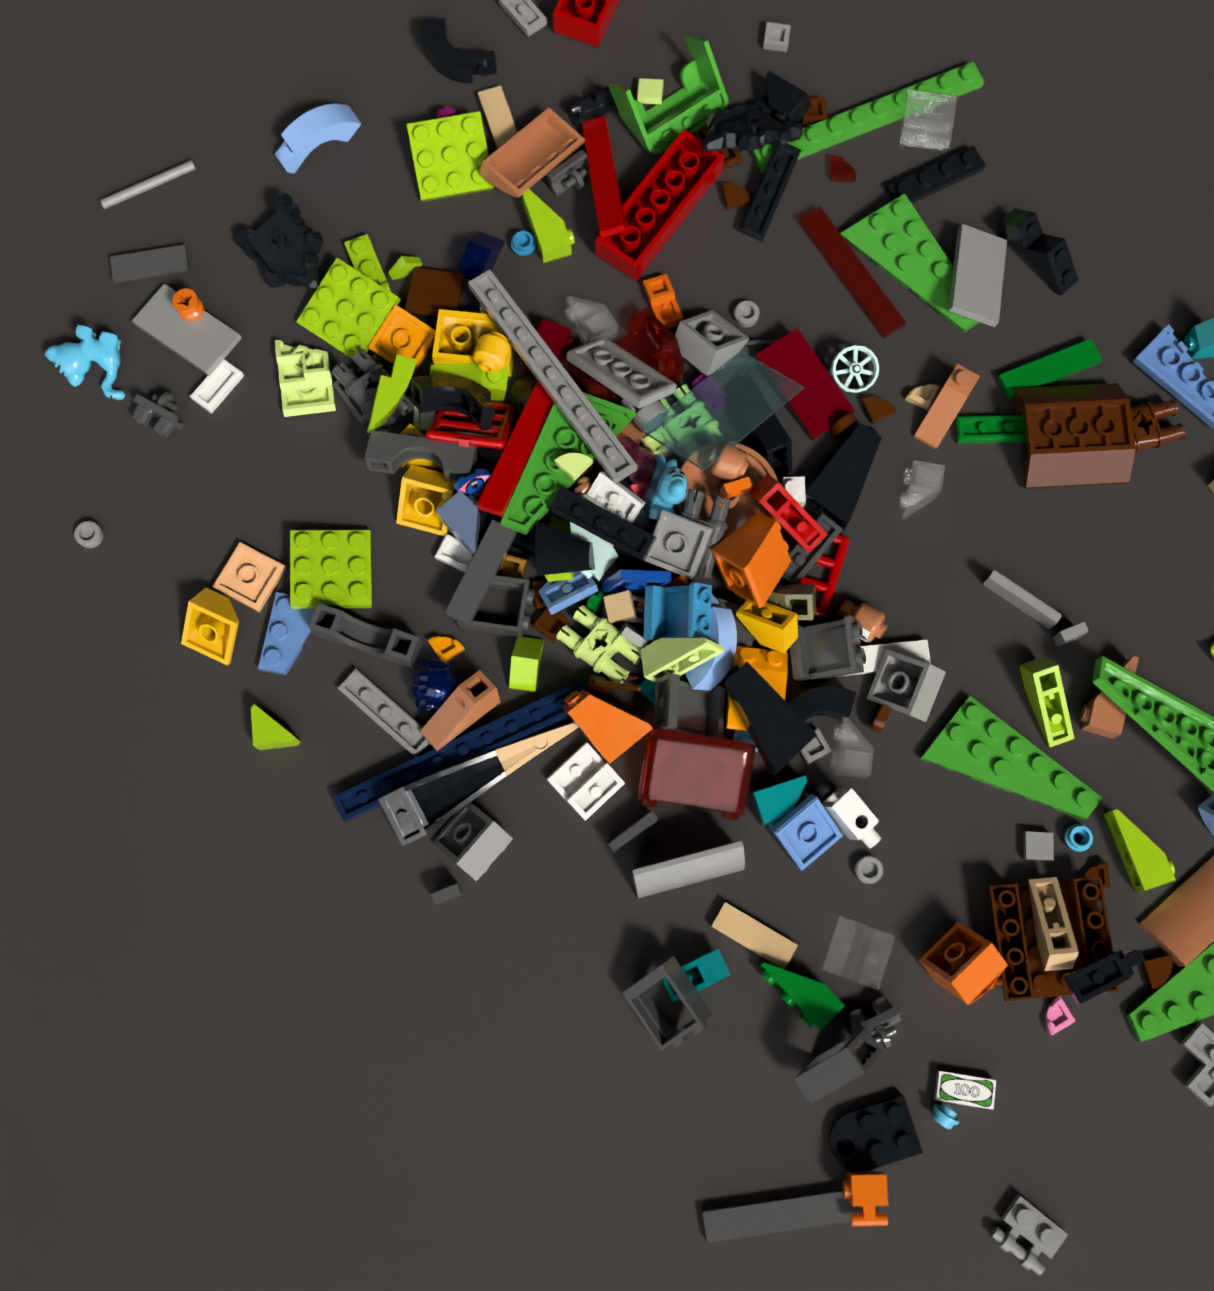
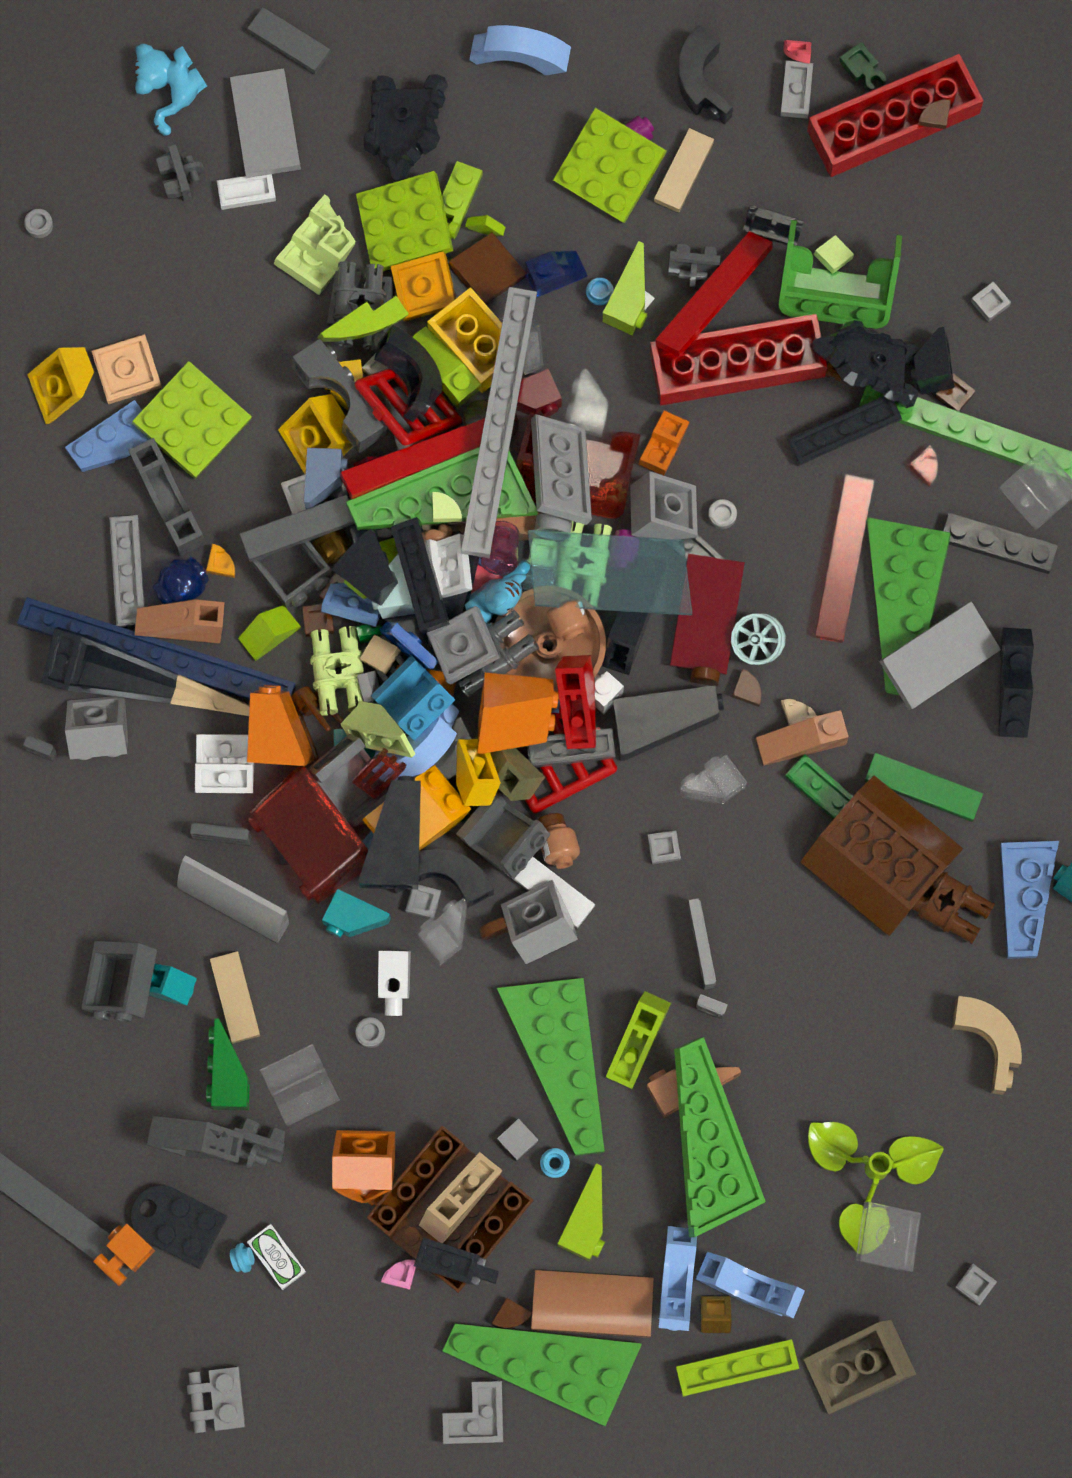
camera: 45 degrees right, 0 degrees up
(194, 306) = (285, 111): orange wheel -> none
(268, 733) = (26, 503): lime slope -> none
(473, 483) = (354, 452): blue tile -> none
(492, 352) = (473, 361): yellow head -> none
(531, 154) = (675, 222): nougat slope -> none
(700, 685) = (389, 762): none -> clear red tile
(735, 196) = (813, 407): reddish brown tile -> none
(735, 488) = (554, 643): orange tile -> none
(806, 832) = (349, 958): medium blue tile -> none
(930, 560) = (664, 847): none -> light grey tile
(1099, 870) = (540, 1206): reddish brown tile -> none

